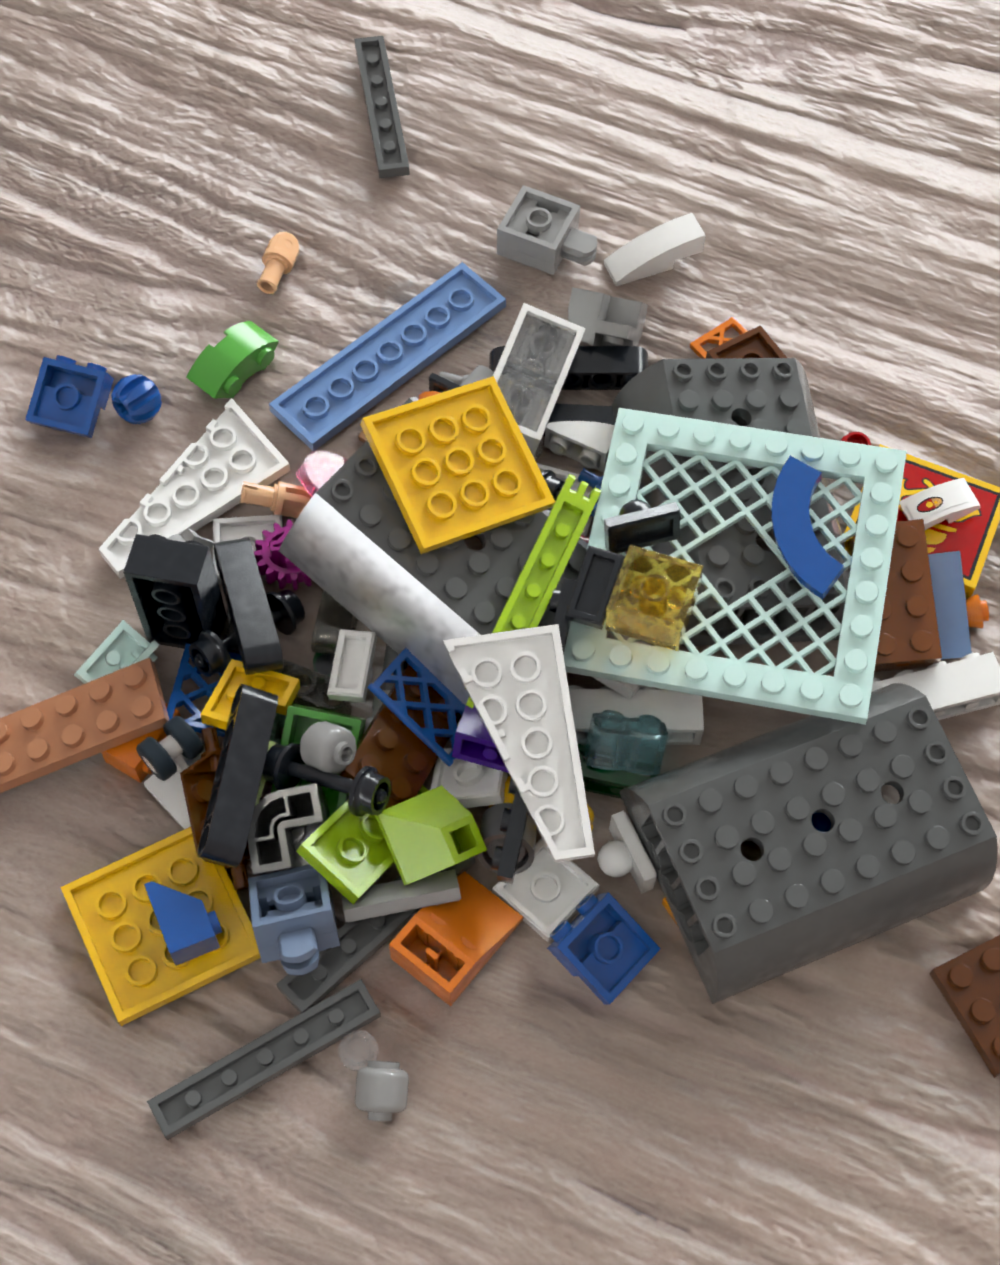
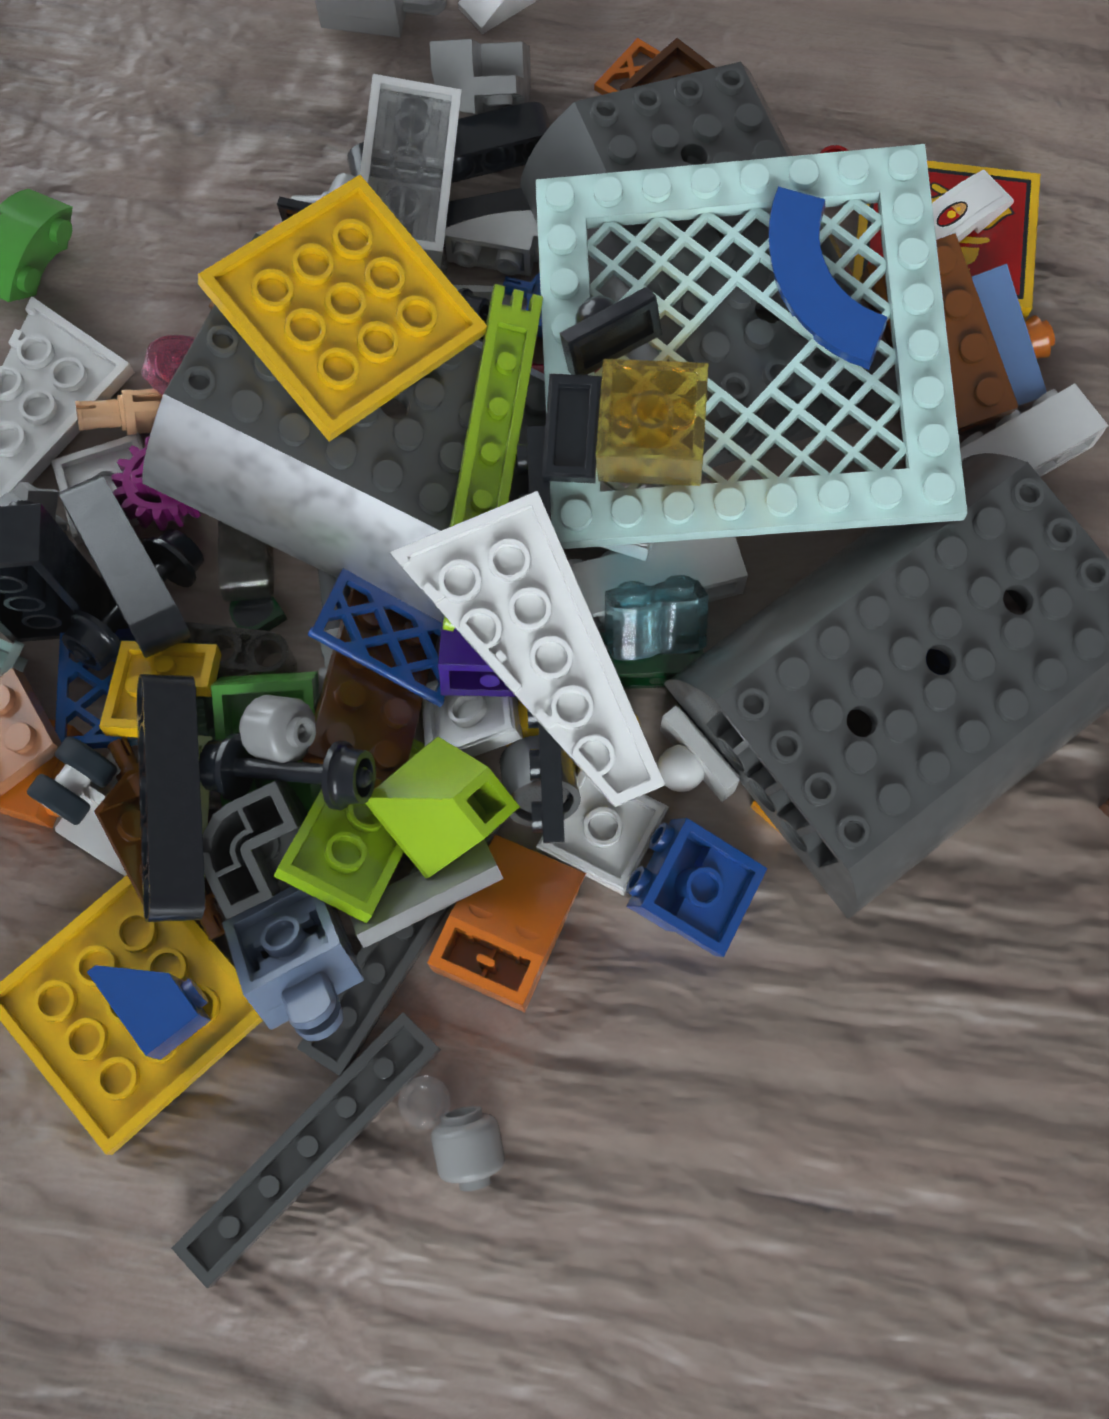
camera: 10 degrees left, 10 degrees up
(278, 260) = (44, 101): light nougat arm -> none
(352, 666) = (281, 609): white tile -> none
(387, 356) = (217, 193): medium blue plate -> none

